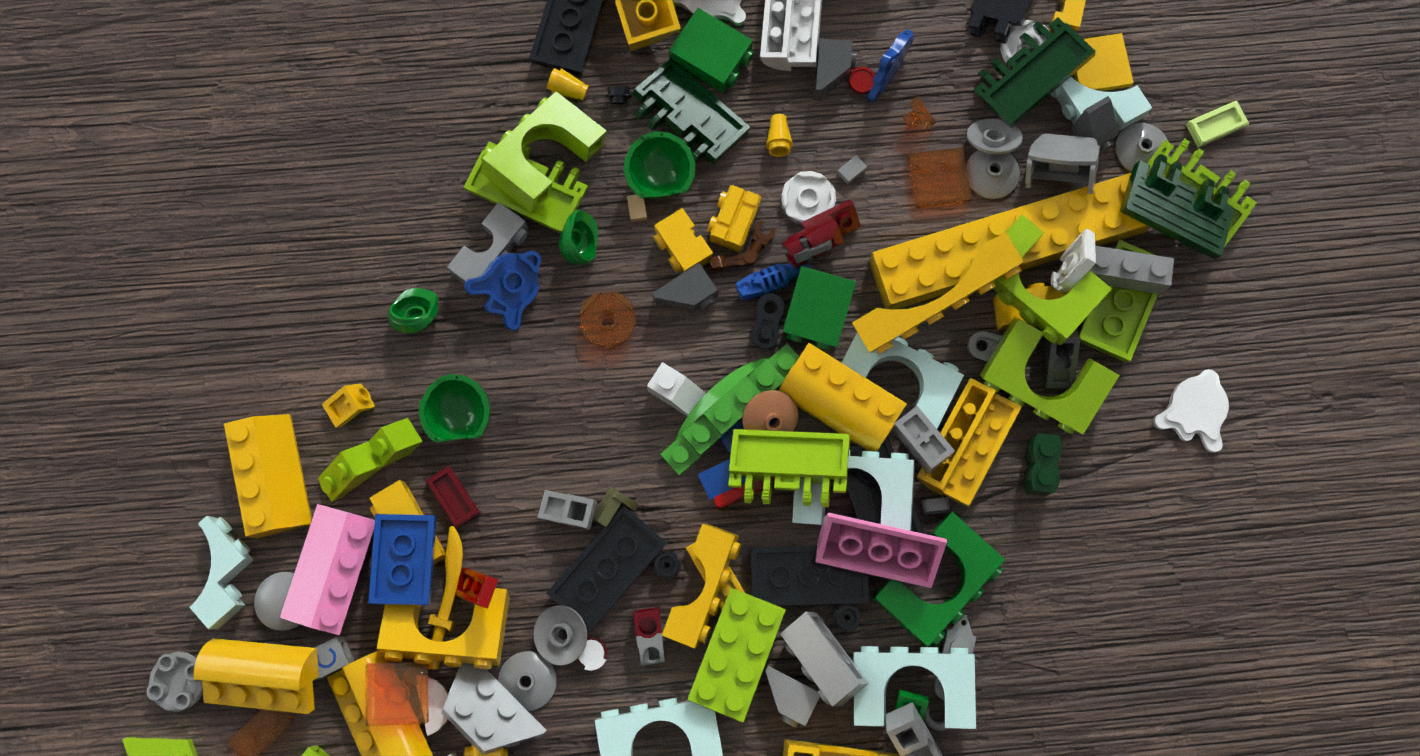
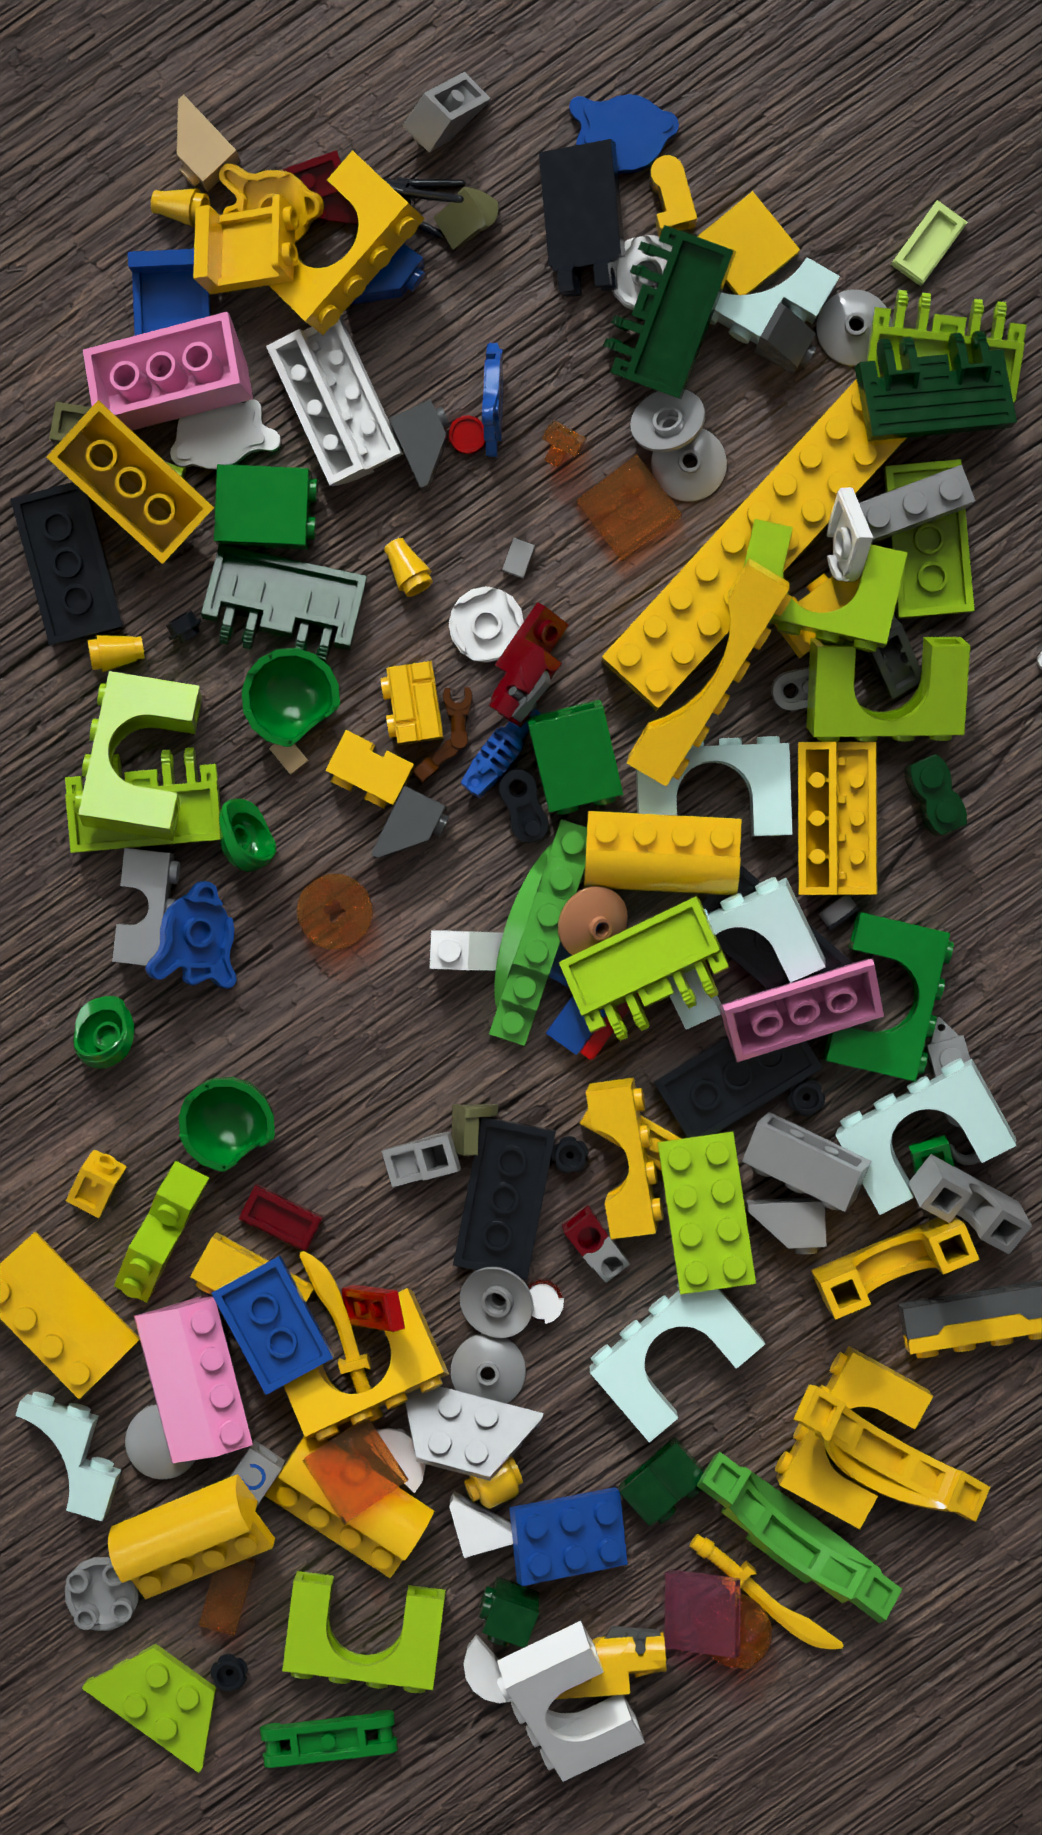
camera: 30 degrees left, 10 degrees up
(922, 440) = (783, 852): light grey hinge -> none
(1063, 159) = (767, 406): light grey piece -> none

